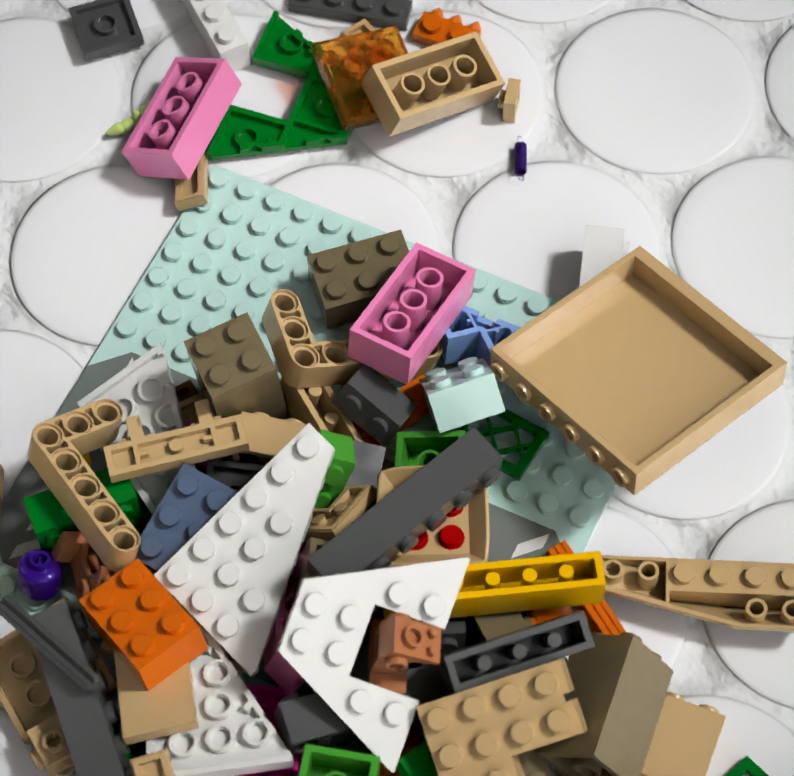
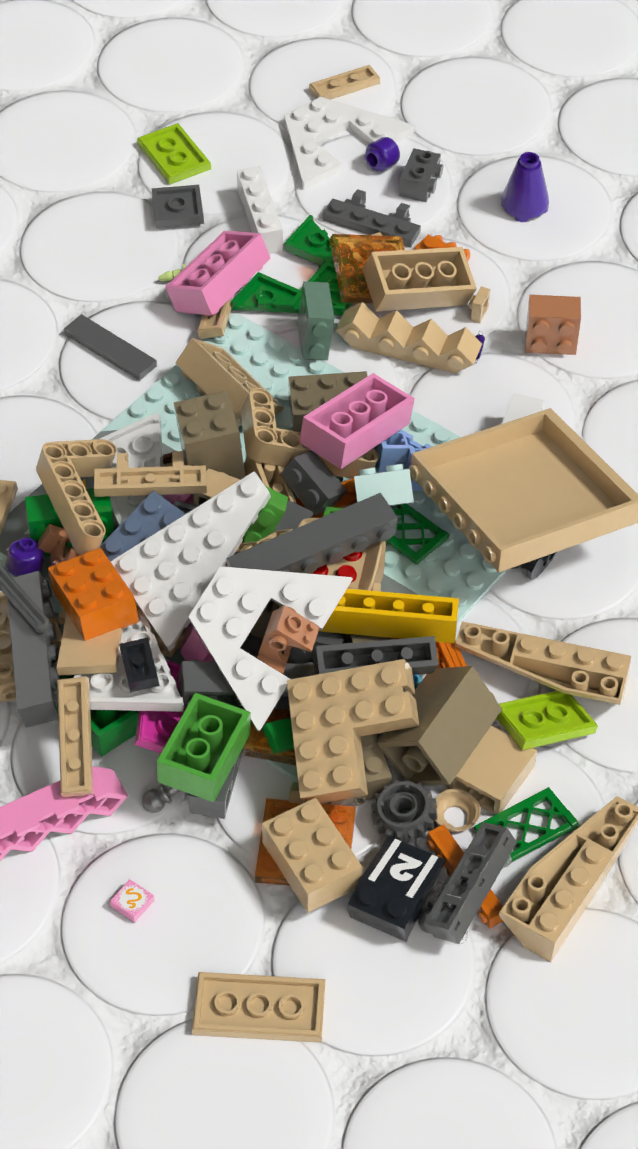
camera: 10 degrees right, 10 degrees down
(70, 243) = (110, 347): none -> dark grey tile
(225, 269) = (218, 371): none -> tan slope
(226, 716) = (139, 664): none -> black plate
(319, 166) = (315, 321): none -> sand green brick
(425, 168) = (398, 339): none -> tan brick
(608, 116) = (553, 324): none -> nougat brick
(724, 669) = (545, 719): none -> lime tile

